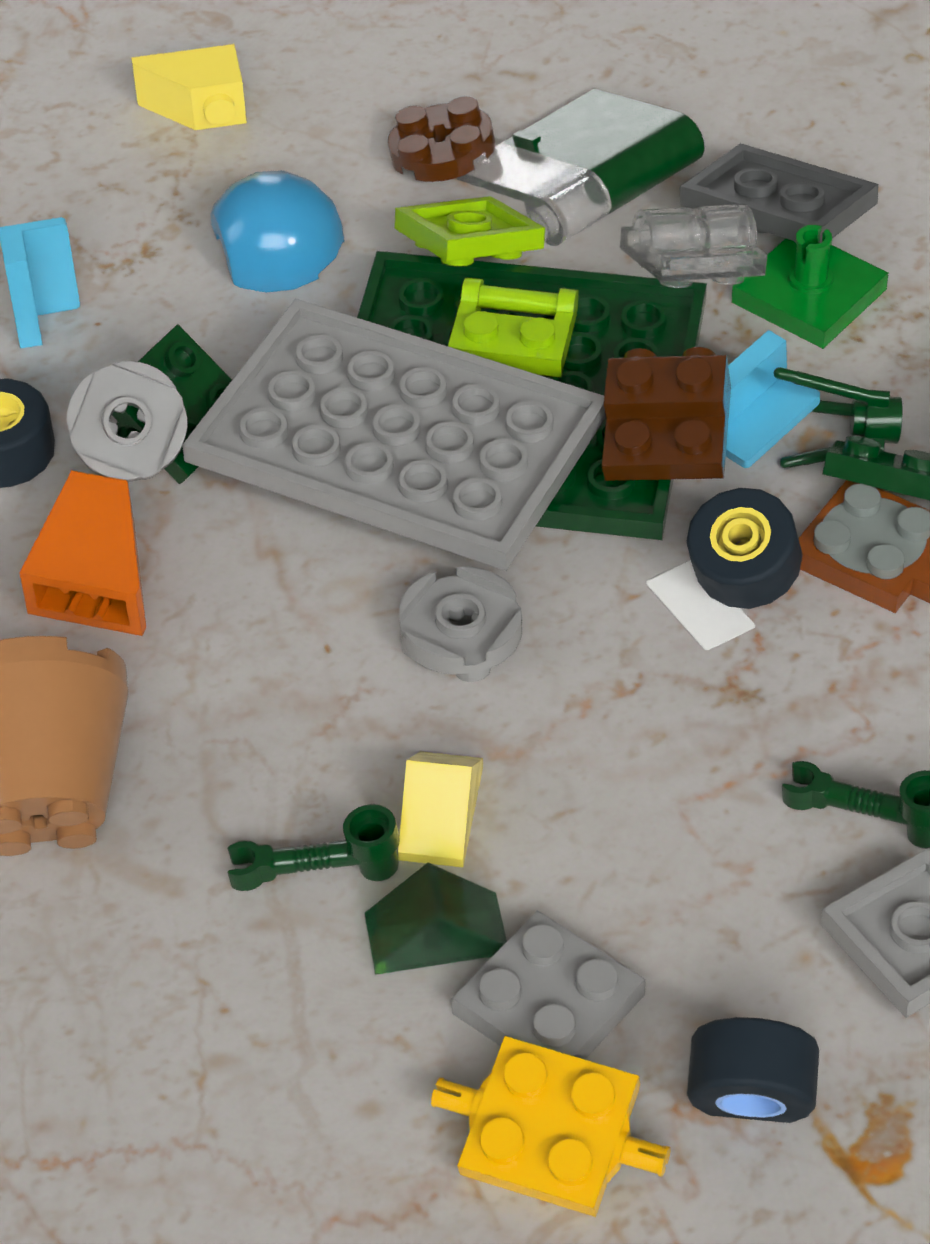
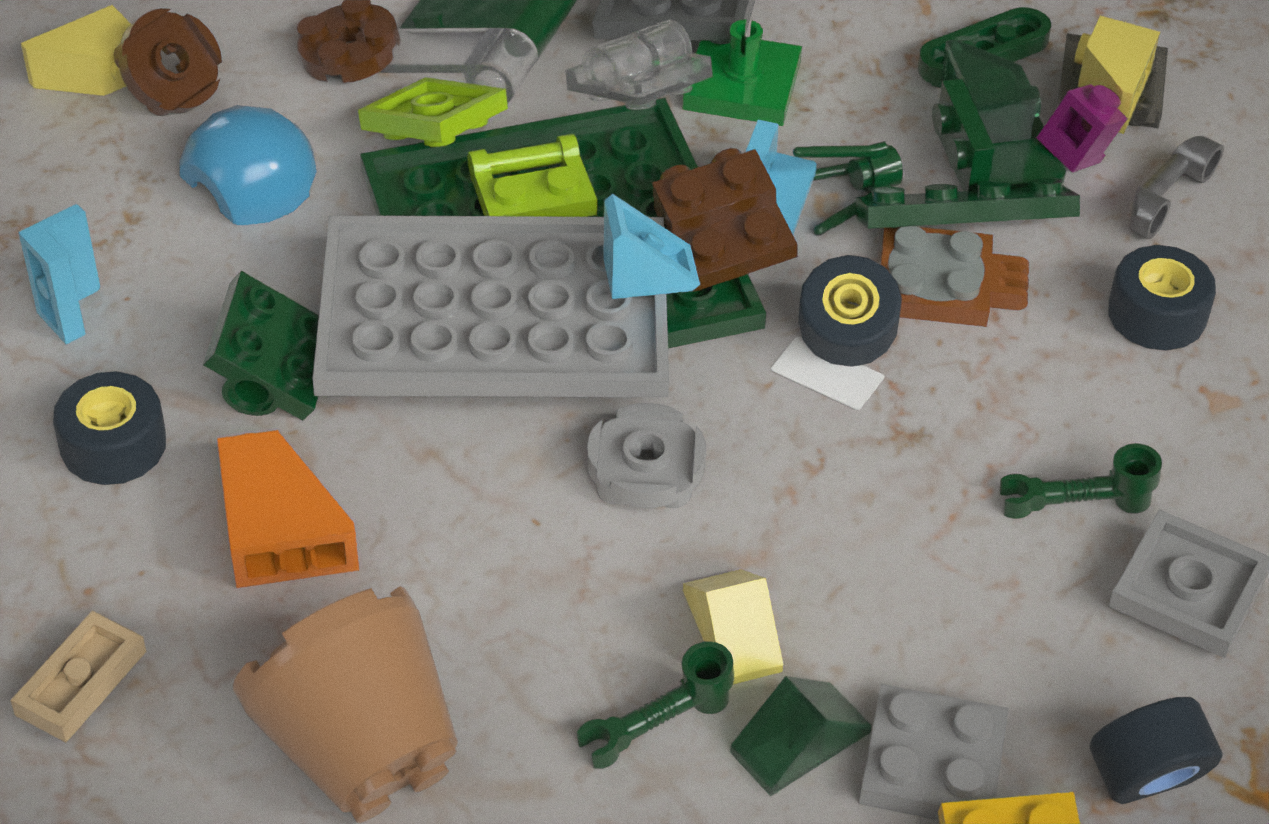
camera: 30 degrees left, 0 degrees up
(111, 391) = (224, 396): light grey plate -> none
(270, 87) = (150, 81): none -> reddish brown plate
(549, 423) = (643, 255): none -> medium azure slope

